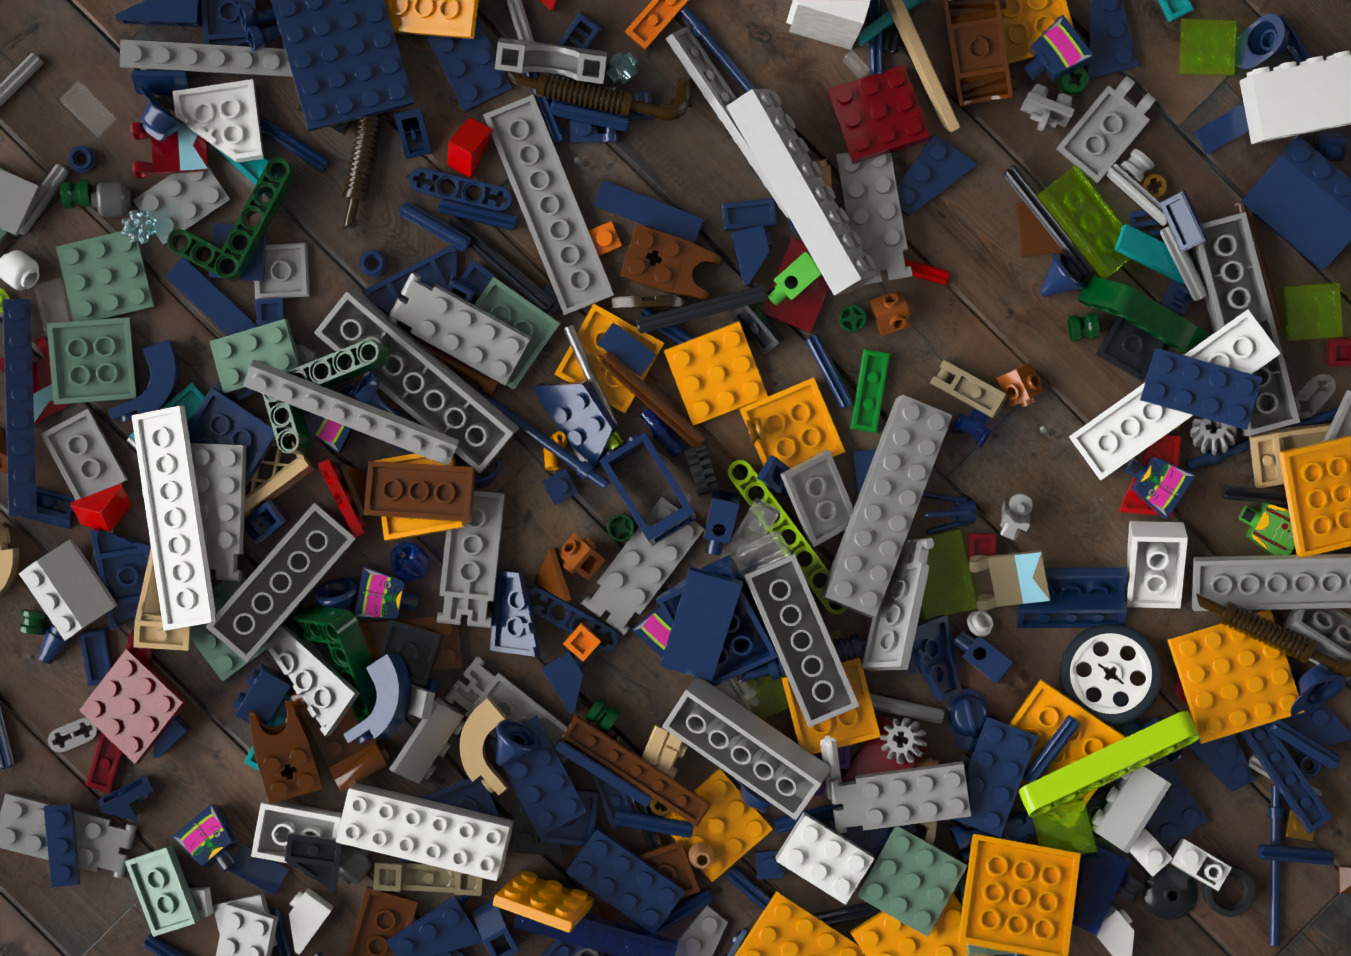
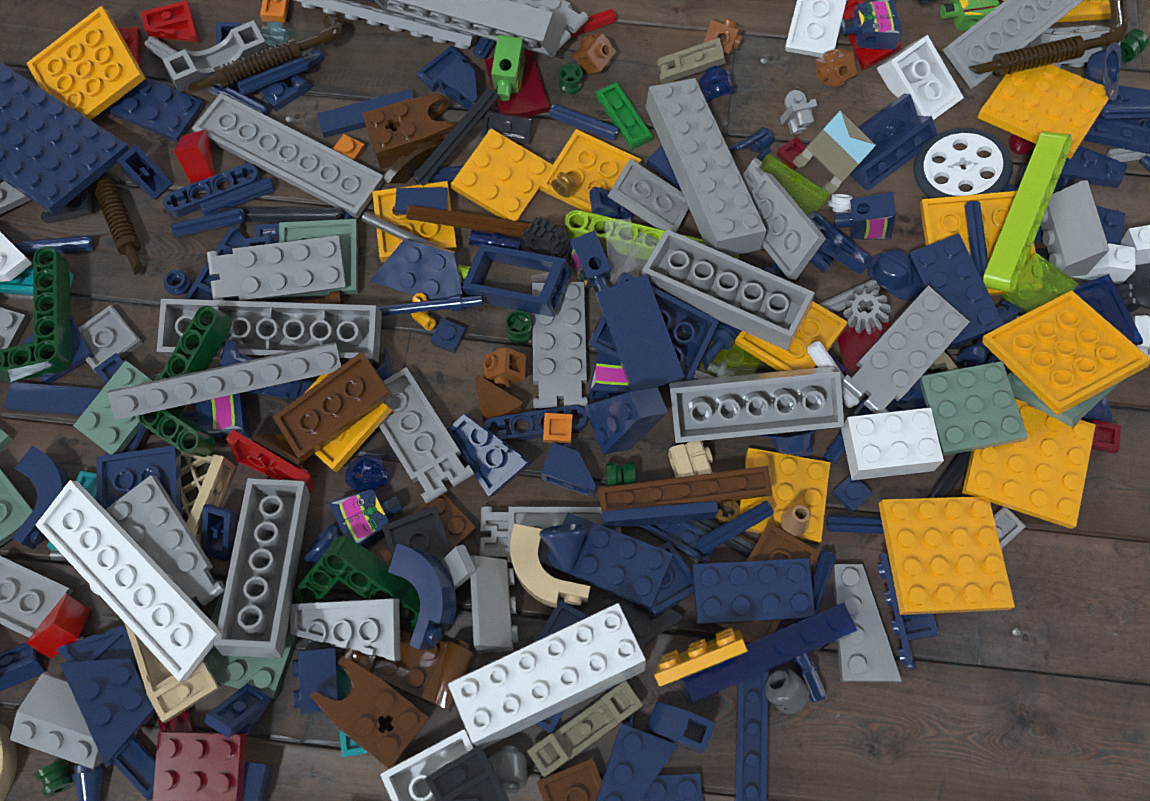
camera: 40 degrees left, 20 degrees down
(106, 602) = (109, 701): none -> dark blue wing
(192, 679) = (238, 712): none -> dark blue slope
(636, 676) = (625, 418): none -> dark blue wedge
(1090, 495) = (836, 67): none -> dark orange brick

